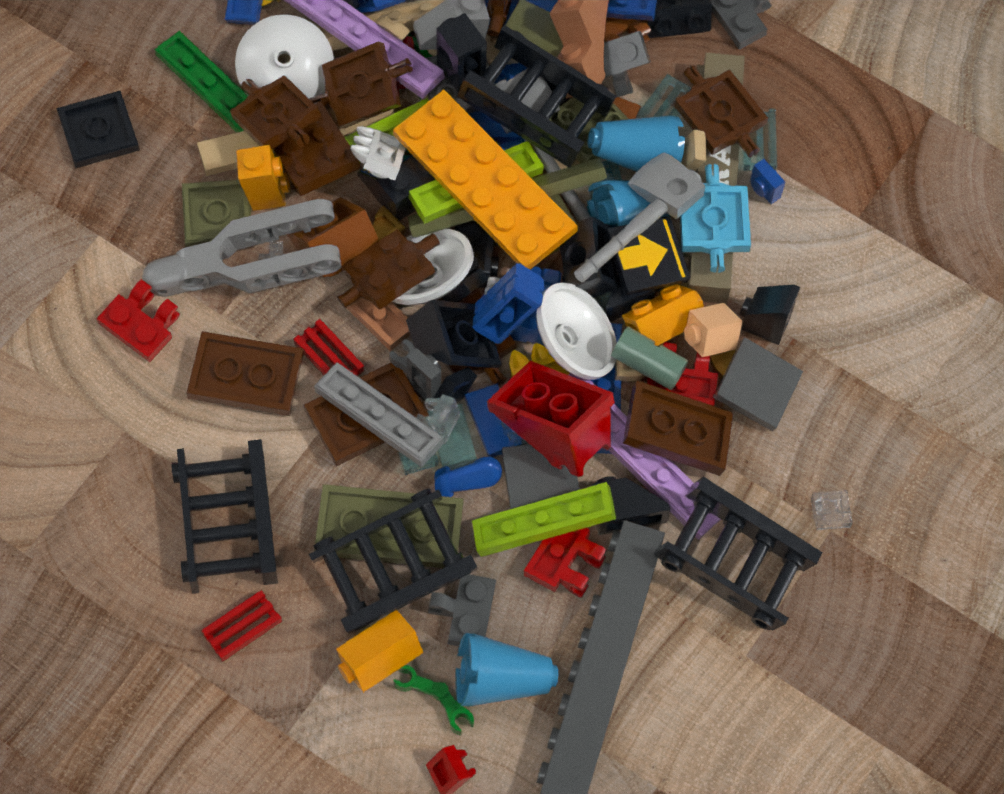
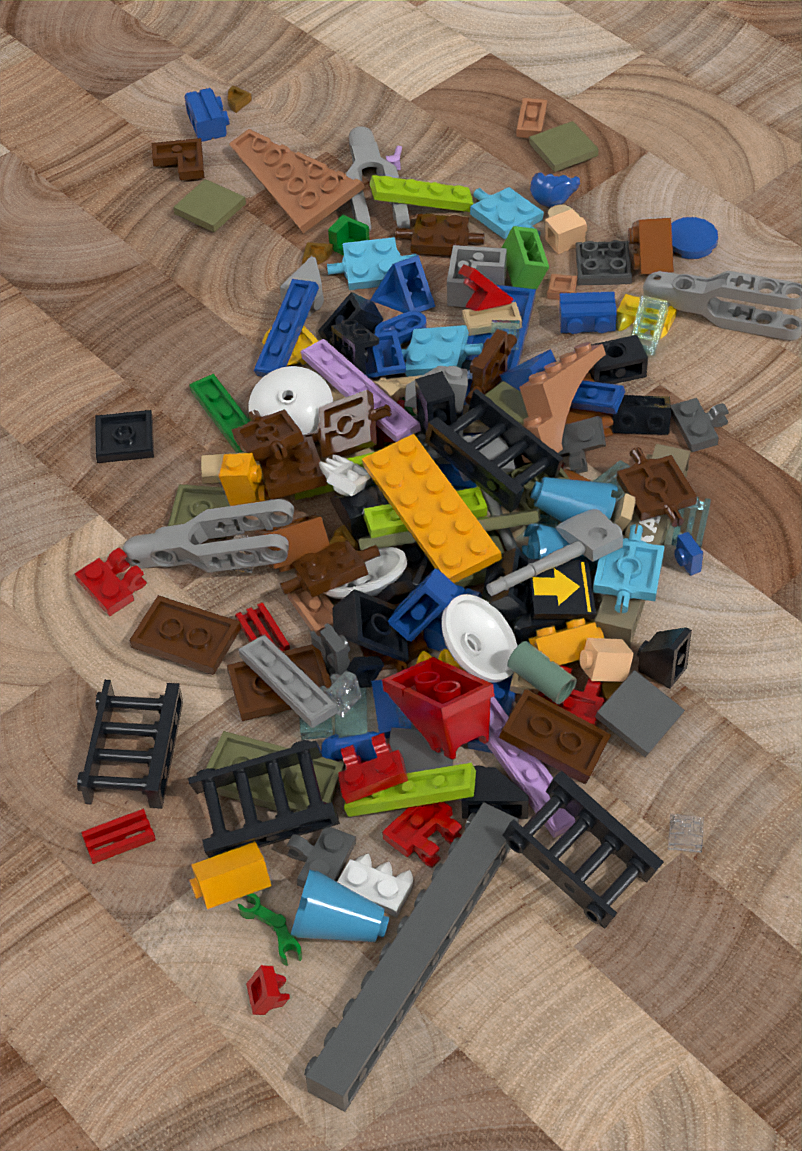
camera: 20 degrees right, 15 degrees down
(500, 510) = (371, 776): none -> red plate
(530, 628) = (378, 883): none -> white plate

